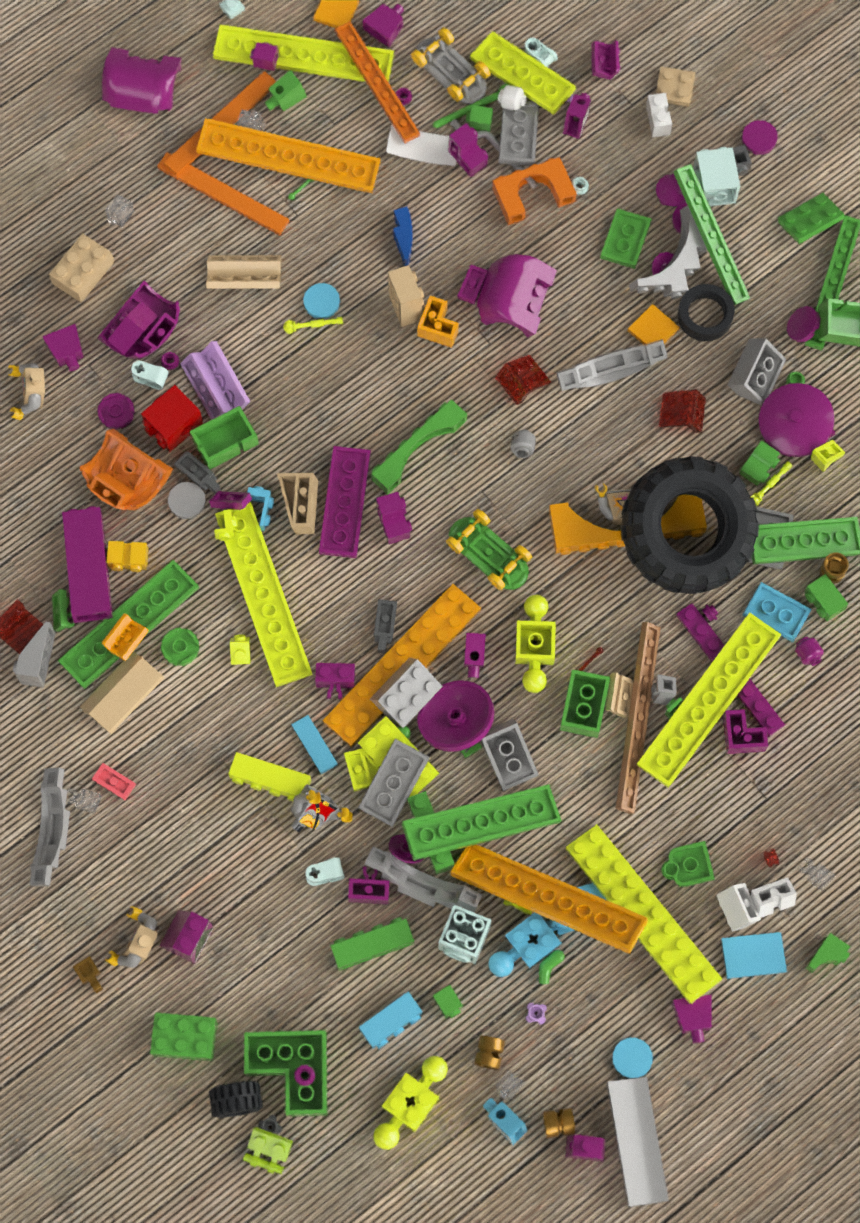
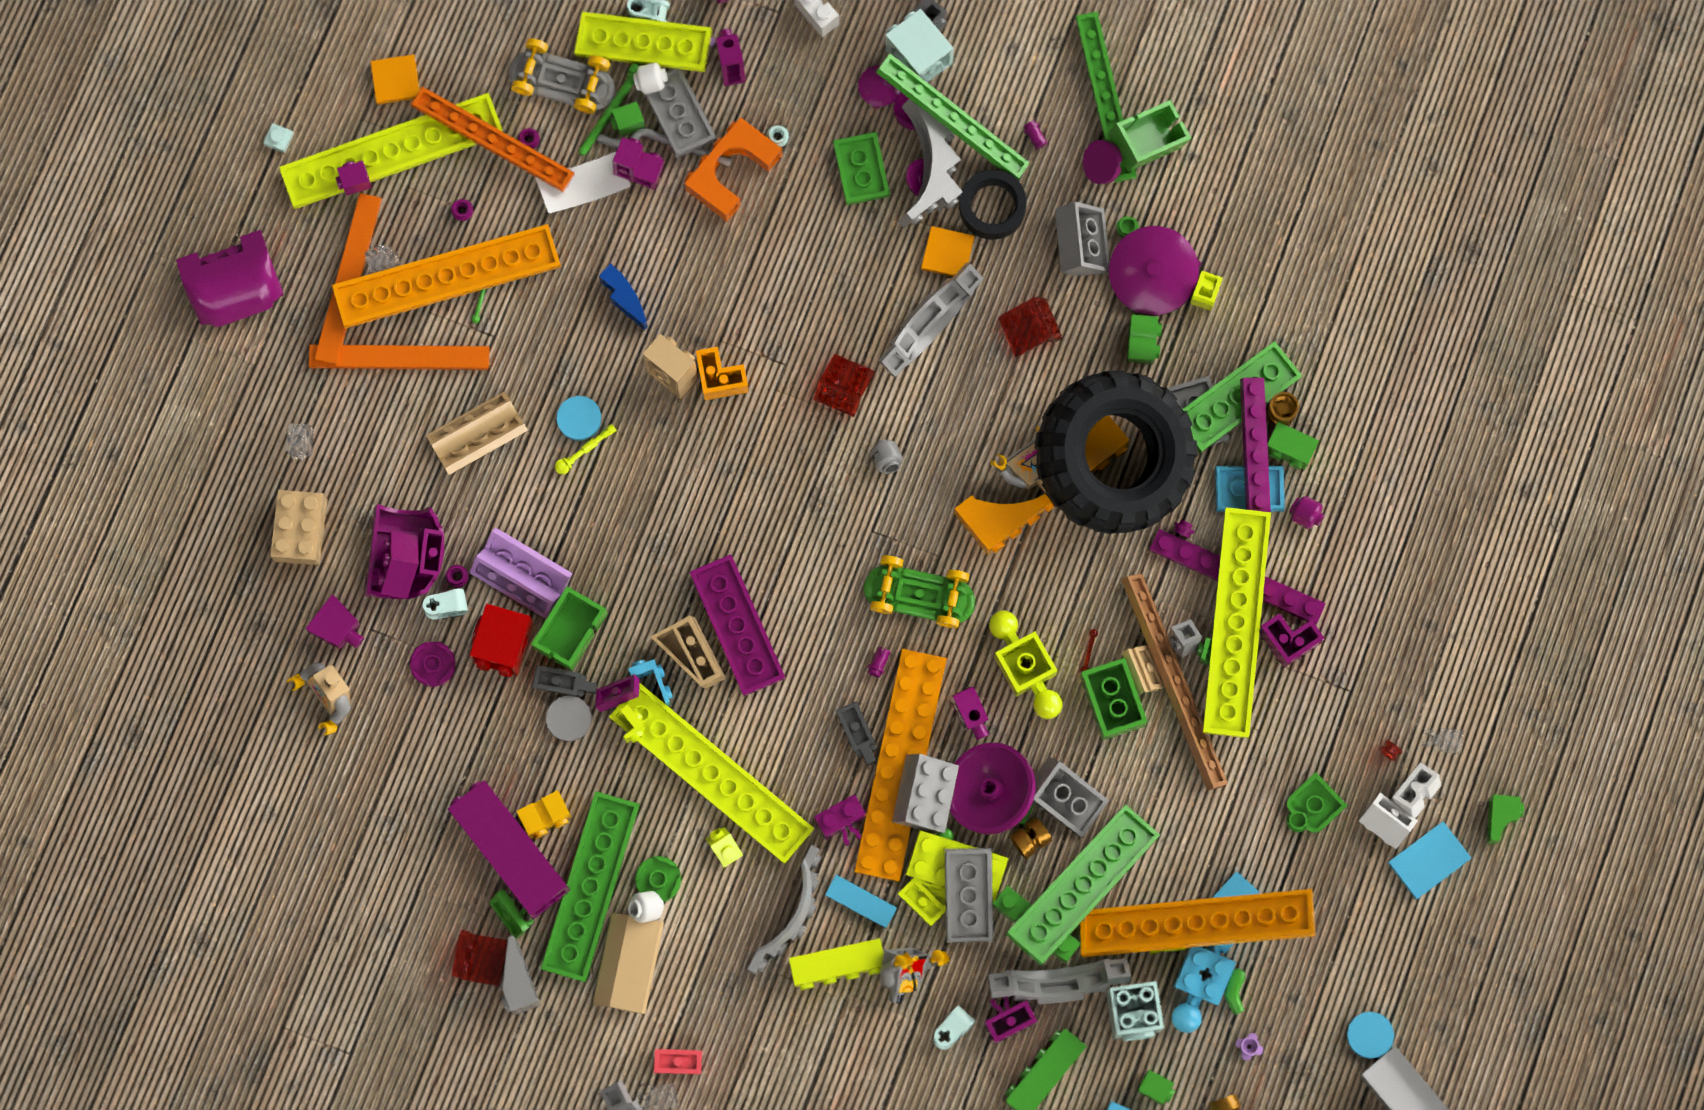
camera: 30 degrees left, 5 degrees up
(124, 473) = (486, 729): orange piece -> none
(124, 637) = (598, 904): light orange bracket -> none
(157, 658) = (645, 907): none -> white head
(255, 734) = (795, 928): none -> light grey piece
(285, 92) = (403, 199): bright green torso -> none
(327, 114) = (462, 203): none -> magenta plate
(384, 23) = (459, 66): magenta torso -> none
(391, 514) = (798, 615): magenta brick -> none
(399, 848) = (1016, 959): magenta dish -> none
(430, 583) = (878, 663): none -> magenta pin
(445, 421) = (791, 477): bright green arch -> none
(457, 769) = (1023, 842): none -> pearl gold wheel
(472, 284) = (729, 310): magenta plate -> none
(515, 292) = (780, 294): magenta piece -> none
(662, 934) = (1272, 870): neon yellow plate -> none
(694, 1017) = (1407, 957): magenta torso -> none
(766, 281) = (1035, 134): none -> magenta pin
(773, 480) = (1160, 377): neon yellow piece -> none
(798, 580) = (1255, 444): none -> magenta plate
(811, 218) = (1042, 38): bright green plate -> none

